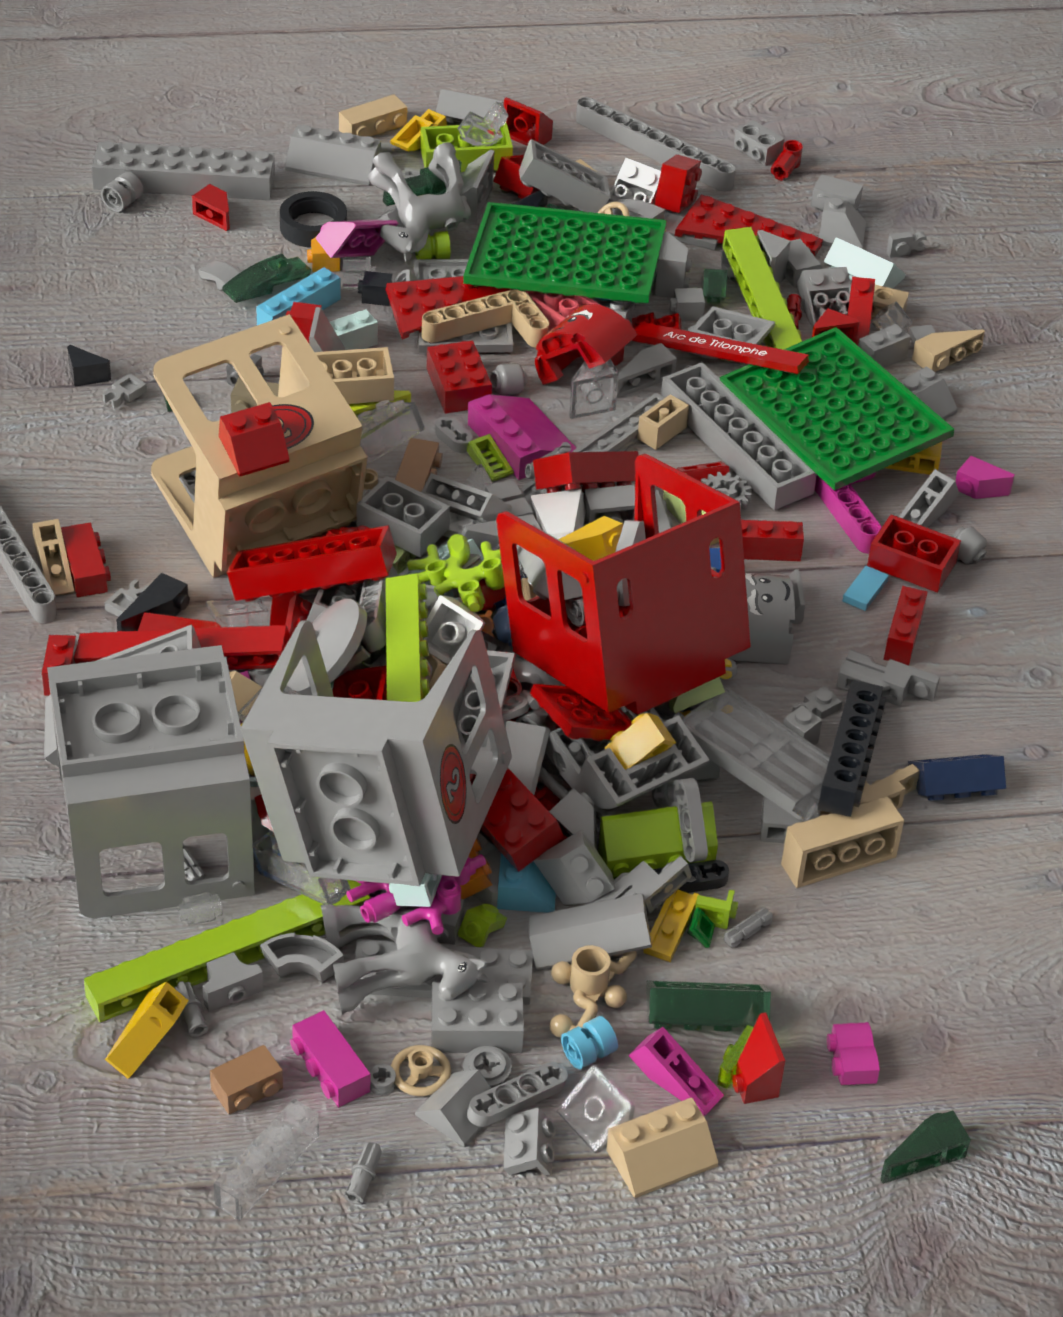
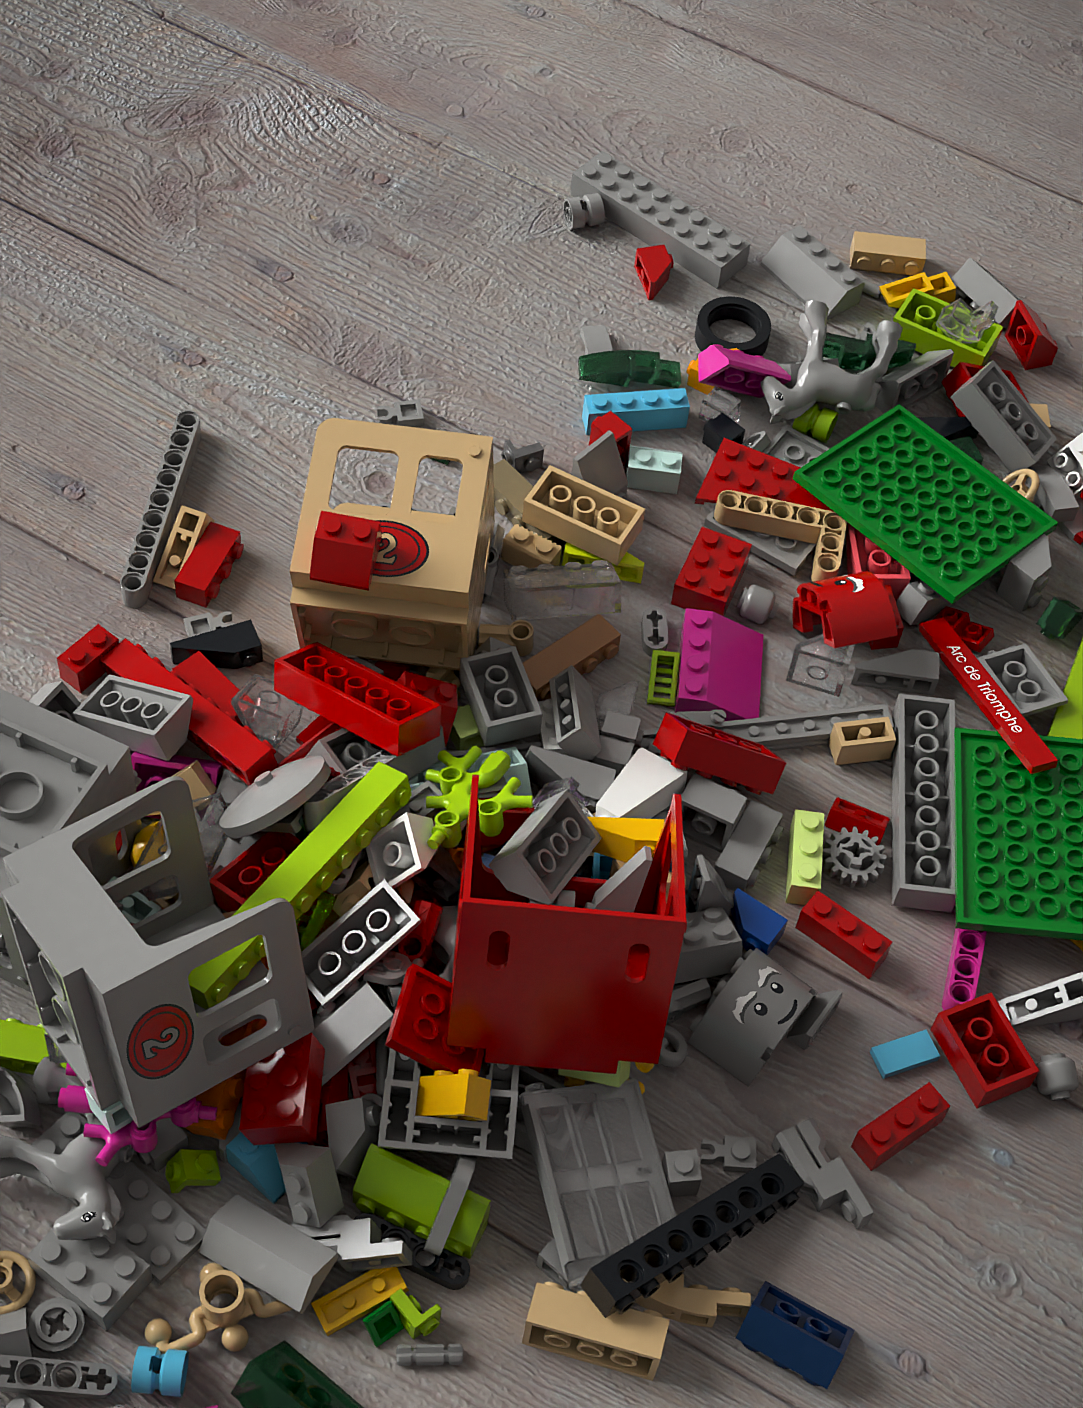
camera: 35 degrees right, 10 degrees up
(87, 367) = (388, 372): black slope -> none
(688, 303) = (1014, 623): light grey brick -> none

